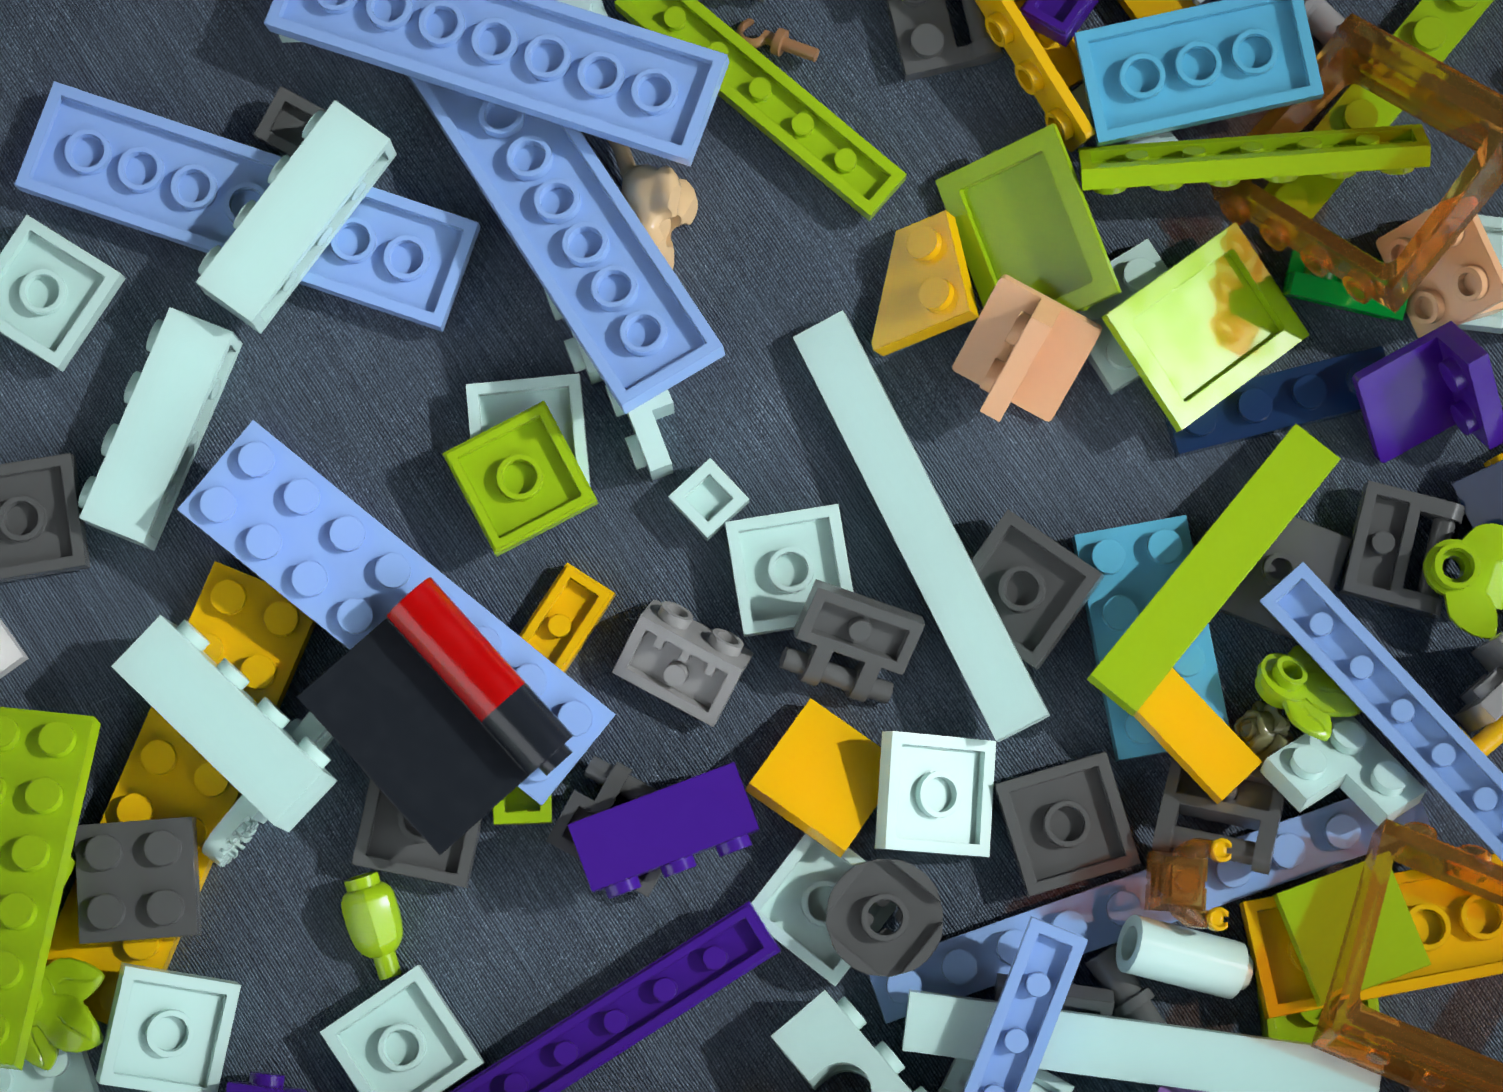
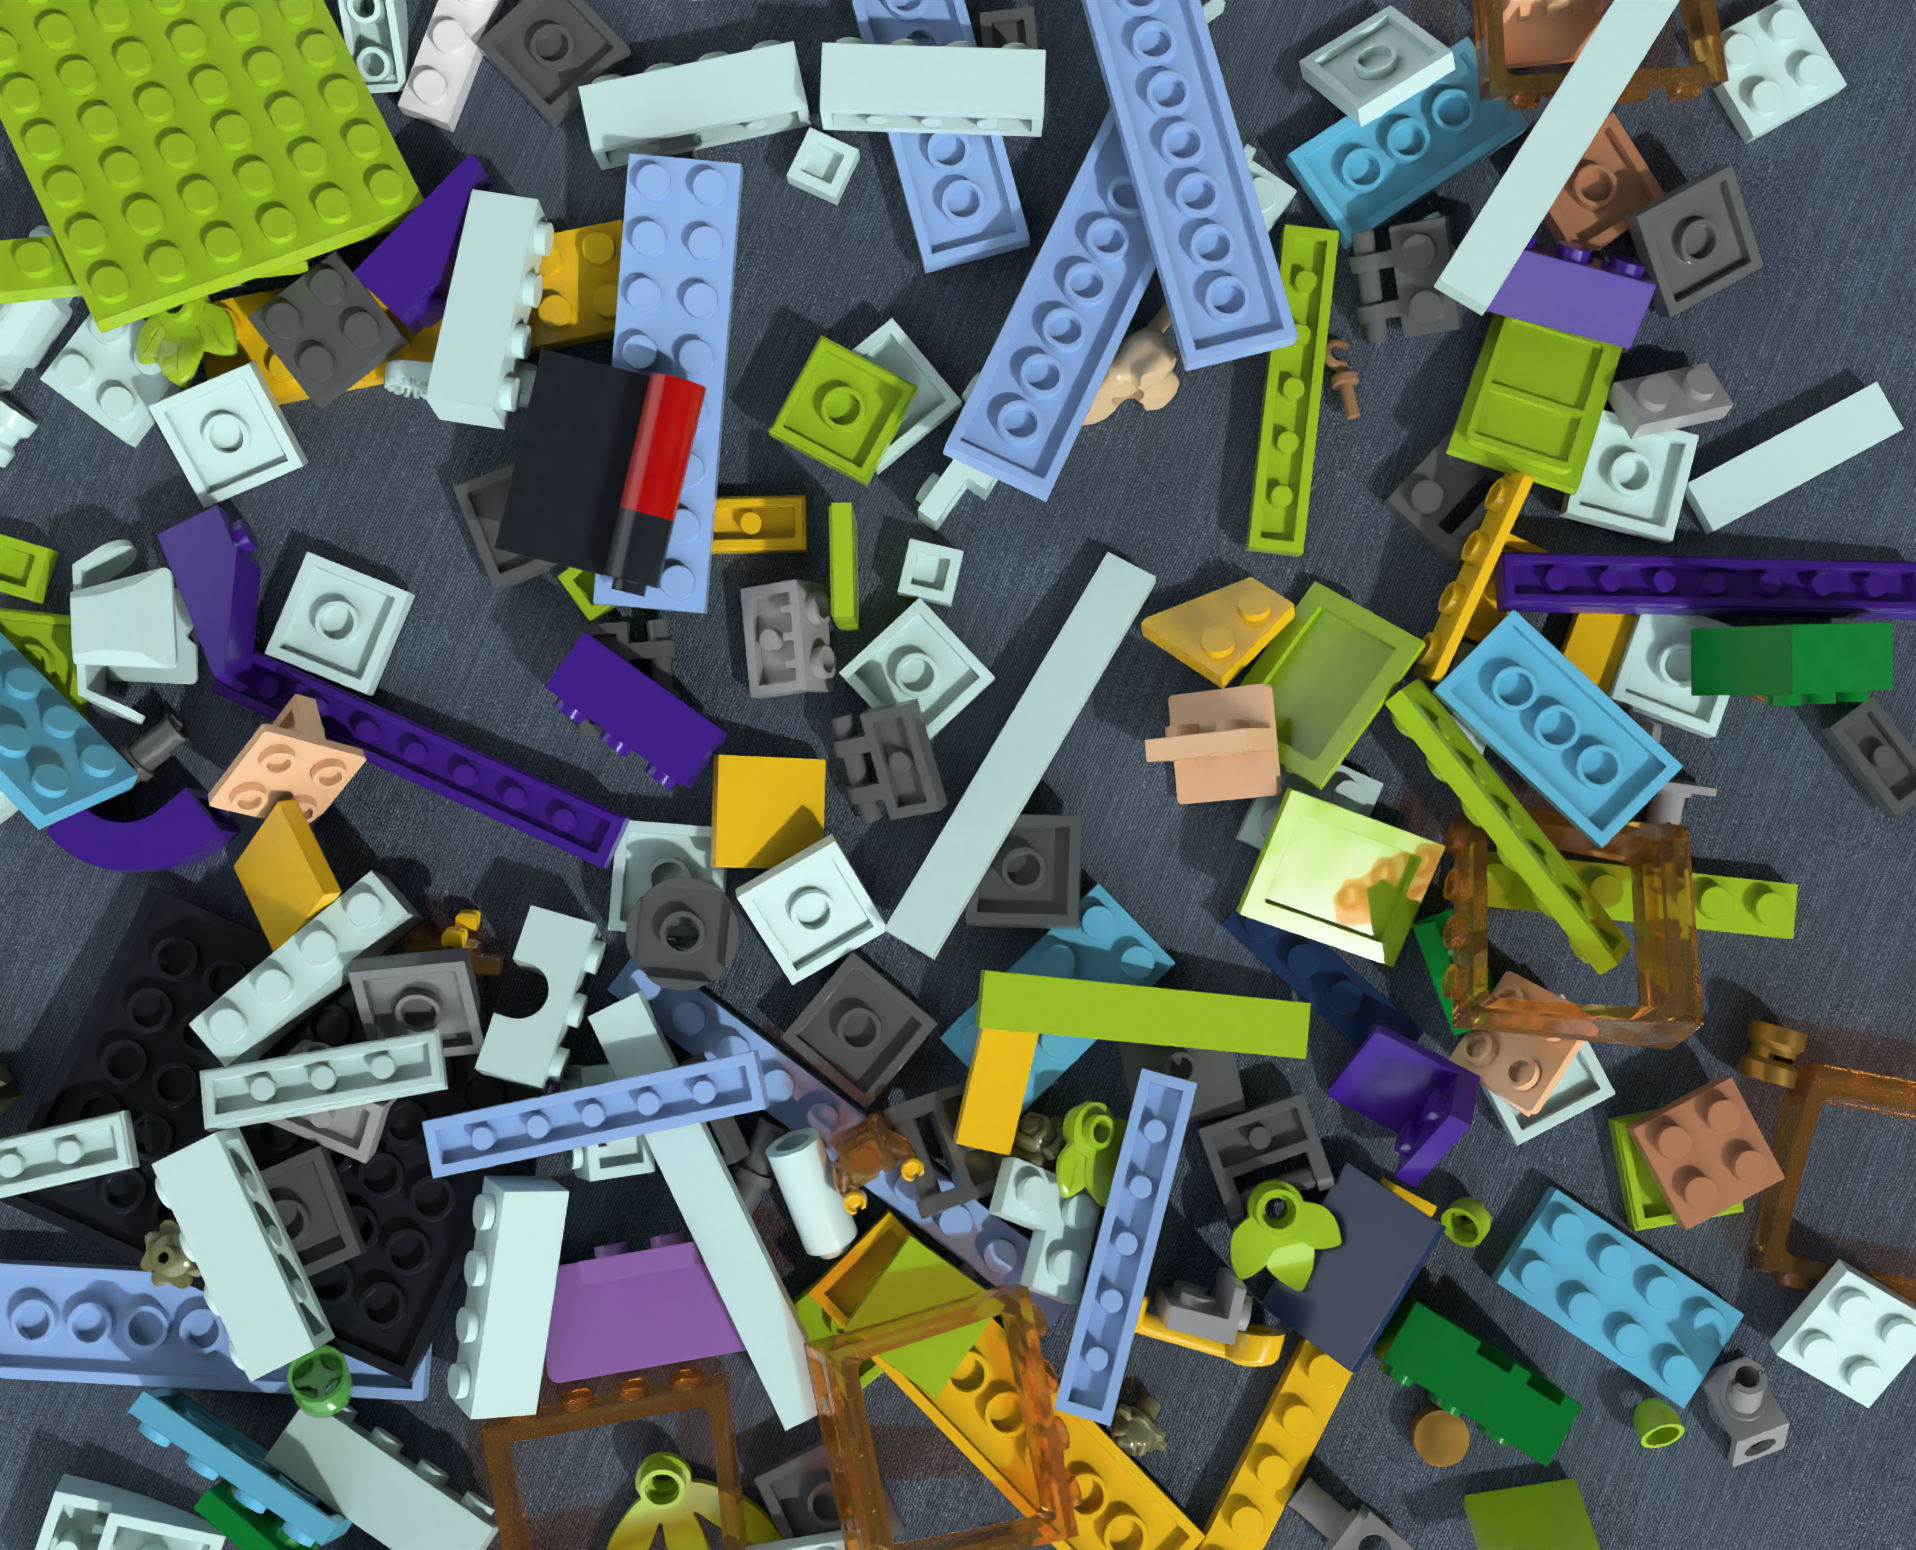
camera: 55 degrees right, 5 degrees up
(138, 755) = (418, 259): none -> dark purple slope
(290, 355) = (823, 166): none -> light aqua plate
(373, 921) = (422, 535): lime plant -> none
(659, 566) = (844, 566): none -> lime tile

